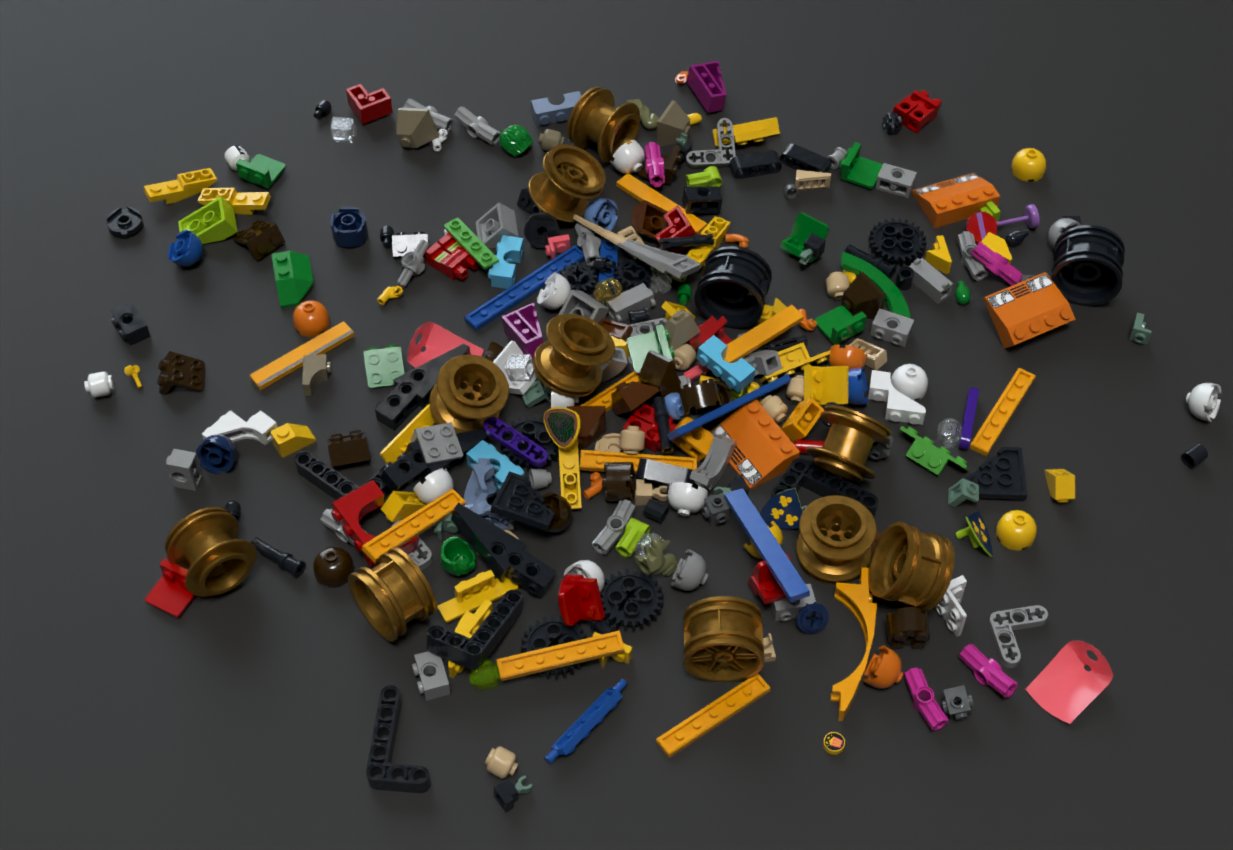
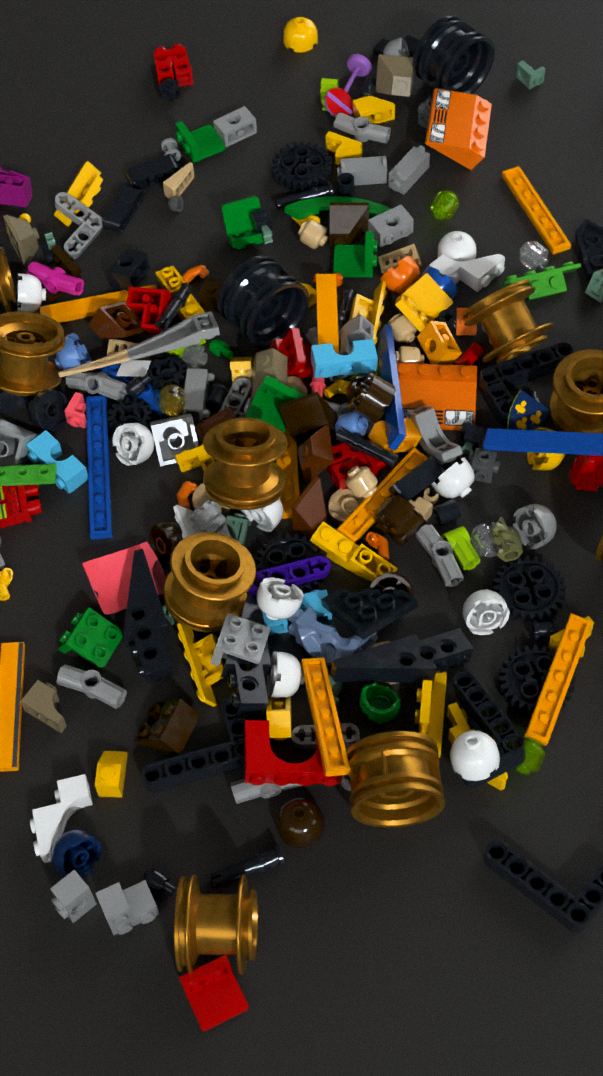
camera: 50 degrees left, 5 degrees up
(193, 496) = (127, 906): none -> light grey brick
(349, 388) = (102, 690): none -> light grey piece
(433, 686) = (507, 798): light grey brick -> none
(442, 627) = (474, 755): none -> white cylinder
(486, 442) = (278, 599): none -> white cylinder
(524, 329) = (159, 492): magenta wedge -> none
(539, 478) = (337, 580): light grey hat -> none
(562, 426) = (309, 524): shield -> none
(579, 599) = (510, 625): red piece -> none
(618, 254) = (134, 368): none -> white sticker
(708, 177) = (104, 252): lime piece -> none
(945, 349) = (445, 205): none -> clear neon green head
(955, 199) = (290, 101): orange slope -> none
(958, 307) = (409, 170): none -> light grey brick
(962, 293) = (392, 158): green cylinder -> none
(968, 419) = (525, 231): dark purple beam -> none
(996, 263) = (390, 116): dark pink piece -> none
(1040, 244) = (394, 75): none -> dark tan slope

